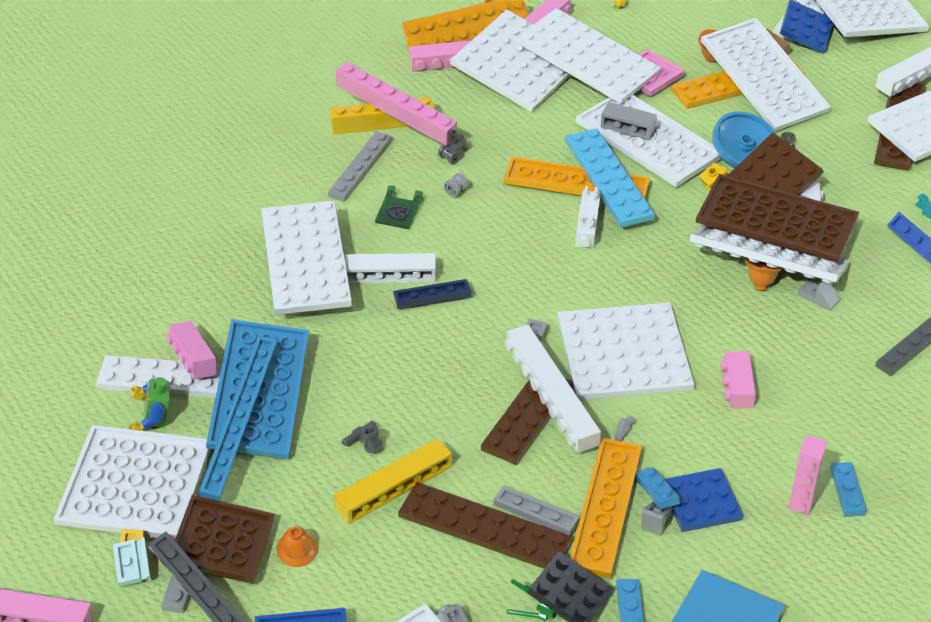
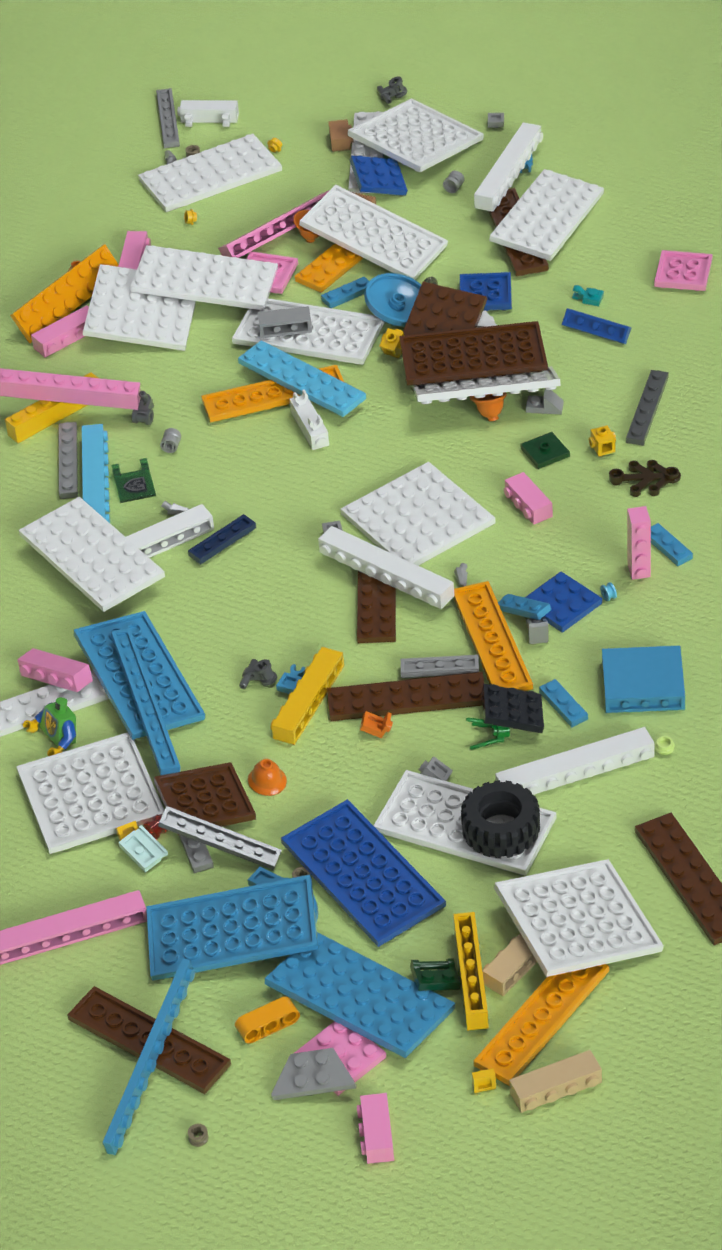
camera: 25 degrees left, 0 degrees up
(370, 187) = (95, 469): none -> medium azure brick
(387, 456) = (288, 681): none -> dark azure plate
(412, 247) = (173, 509): none -> light grey bar
(432, 541) = (375, 724): none -> orange bracket
(667, 38) = (267, 231): none -> bright pink brick
(703, 117) = (345, 293): none -> dark azure plate
(753, 511) = (608, 591): none -> medium azure bush
(789, 339) = (545, 450): none -> dark green plate
(839, 165) = (492, 285): none -> blue plate
(849, 354) = (602, 440): none -> yellow brick
(872, 57) = (453, 181): none -> light grey wheel
(893, 417) = (647, 475): none -> dark brown plant

